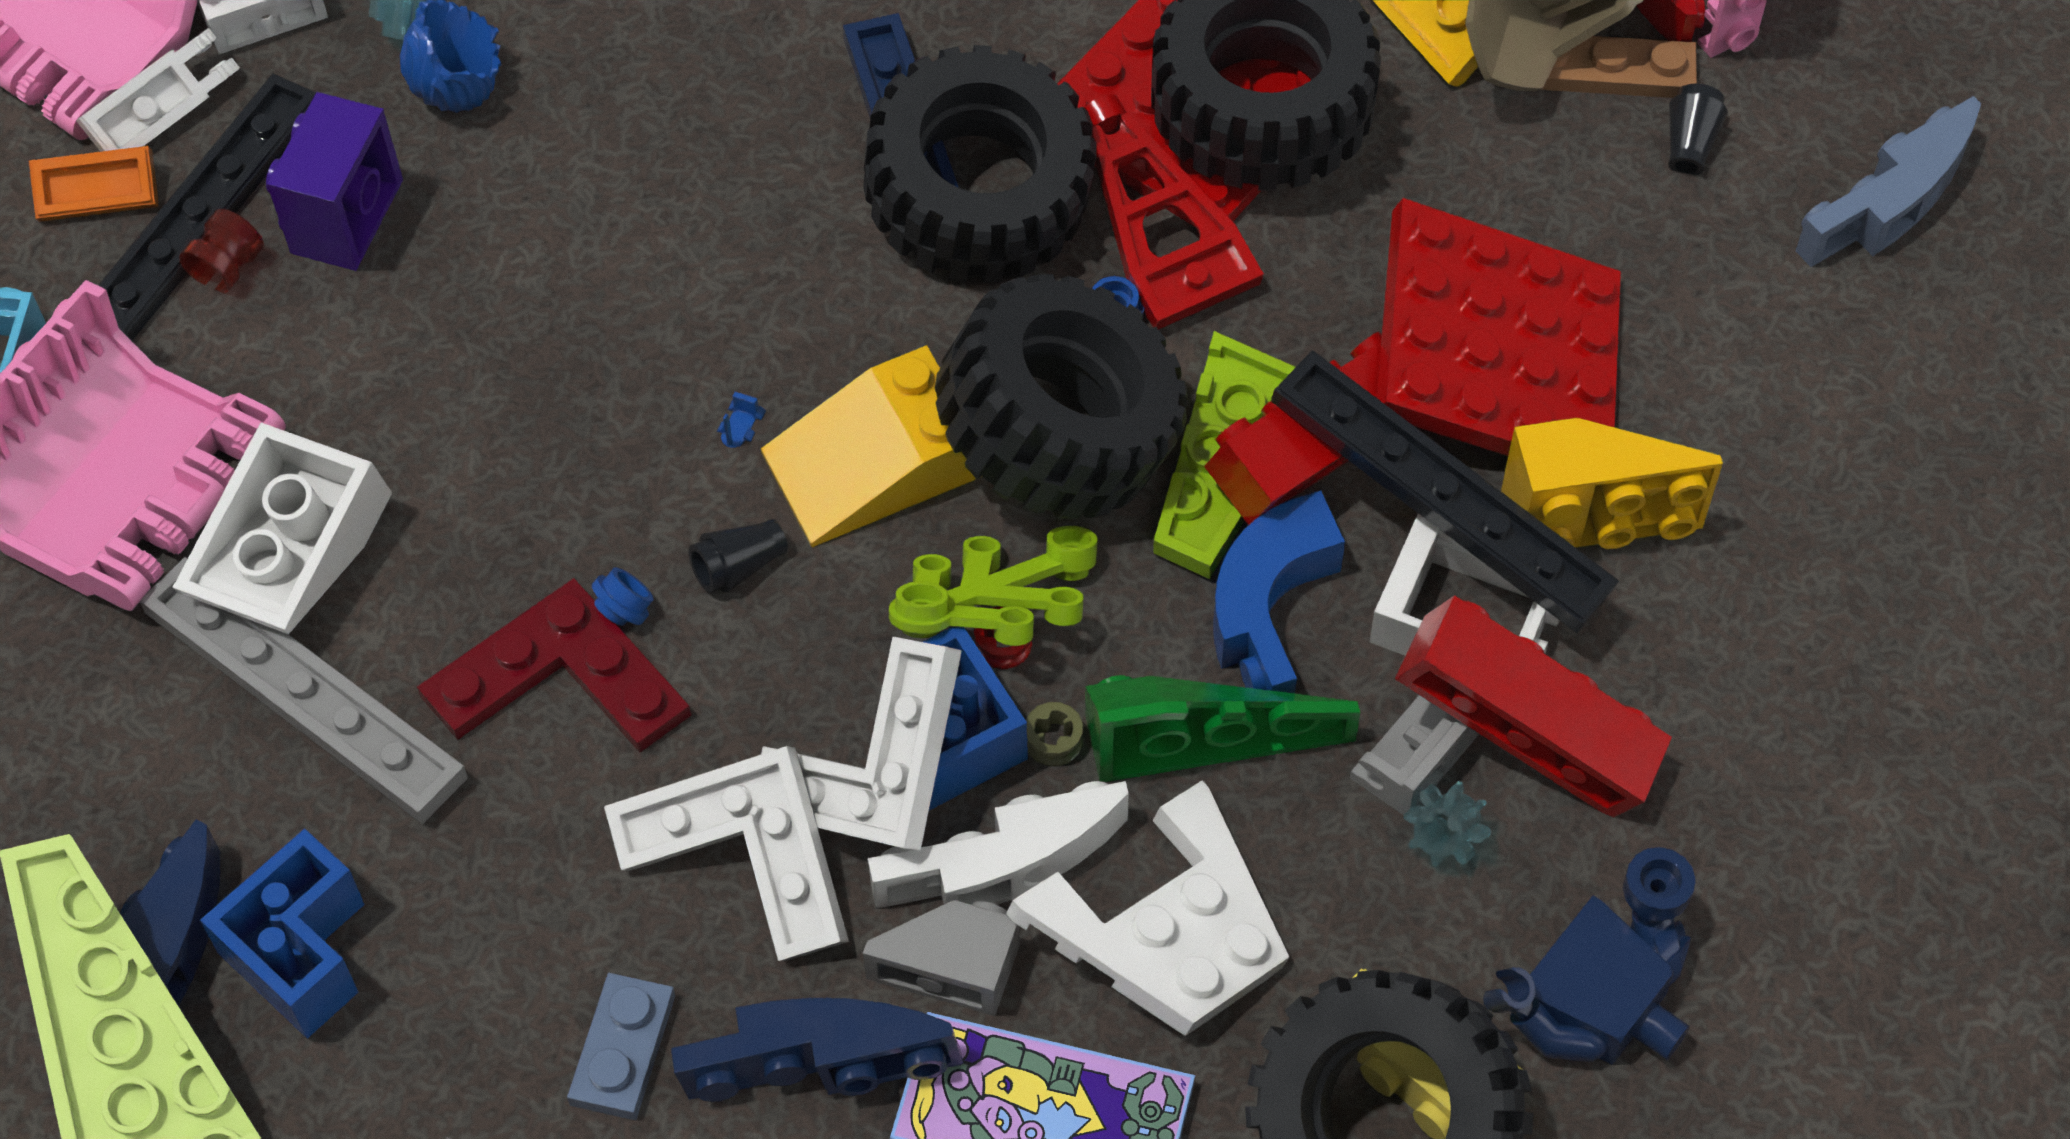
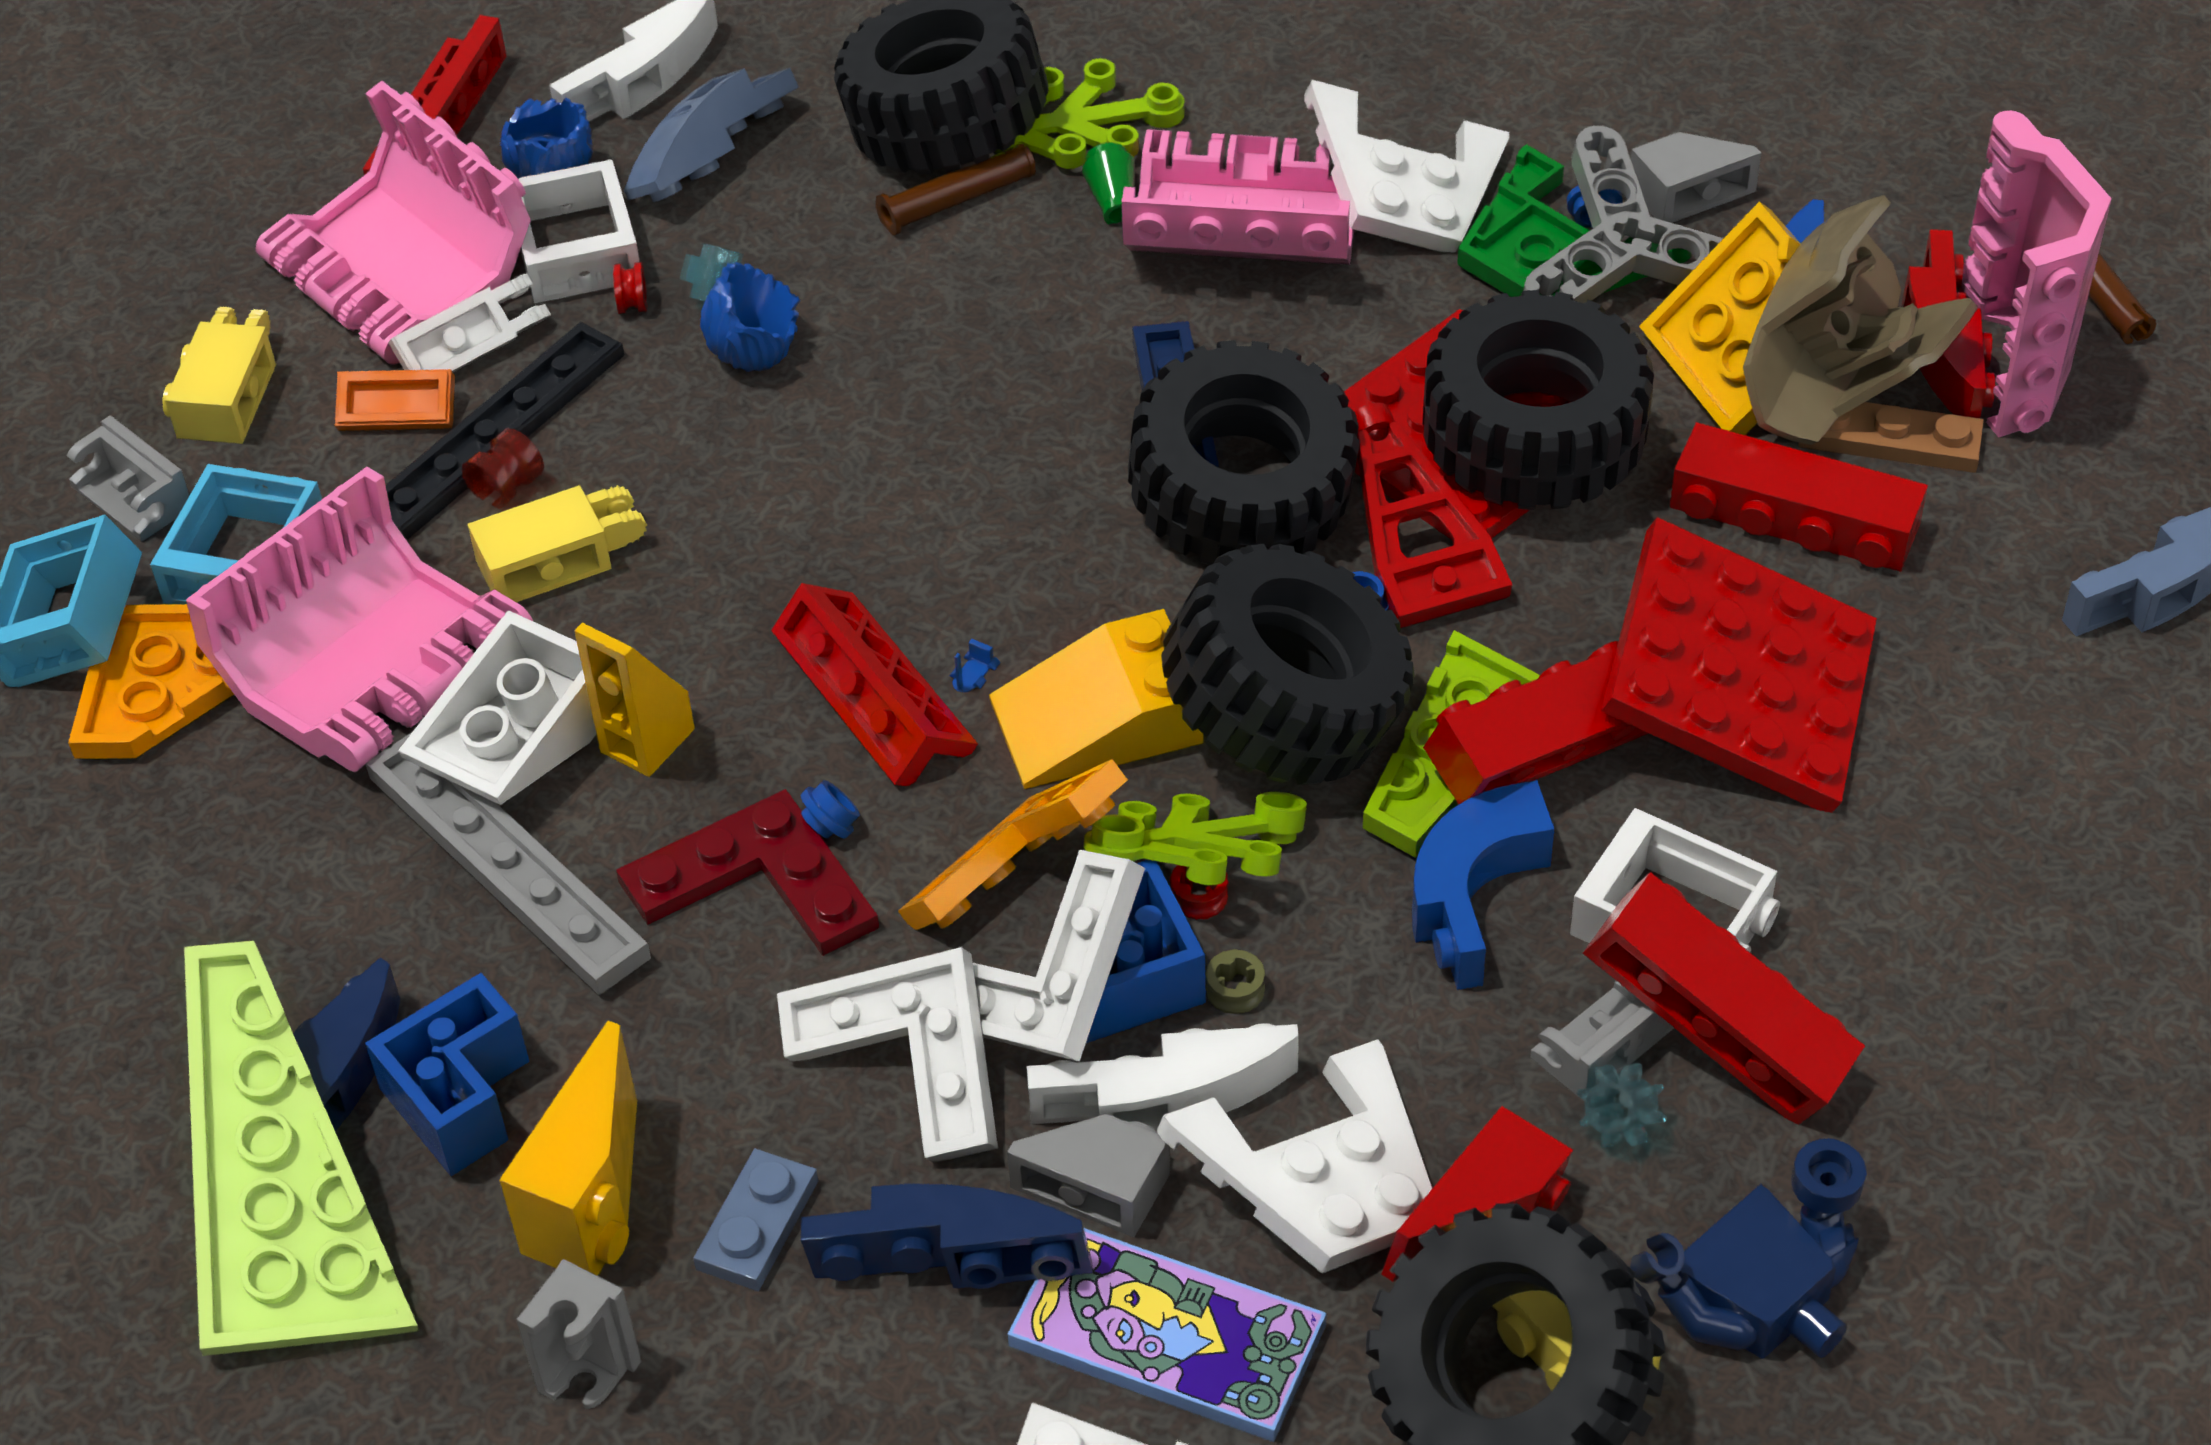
camera: 10 degrees right, 10 degrees down
(289, 328) = (554, 540): none -> light yellow hinge
(318, 30) = (630, 287): none -> red bush
(335, 180) = (620, 411): dark purple brick -> none
(406, 511) = (633, 703): none -> yellow slope
(437, 1035) = (575, 1168): none -> yellow slope
(636, 451) = (876, 696): none -> red fence
(732, 555) = (945, 784): black cone -> none
(832, 585) = (1043, 815): none -> light orange plate
(1184, 724) = (1372, 984): green wedge -> none
(1336, 934) = (1500, 1166): none -> red slope
(1444, 491) = (1662, 789): black tile -> none
(1528, 148) = (1798, 496): none -> red brick
(1608, 482) = (1828, 805): yellow slope -> none
(1694, 126) = (1971, 493): black cone -> none

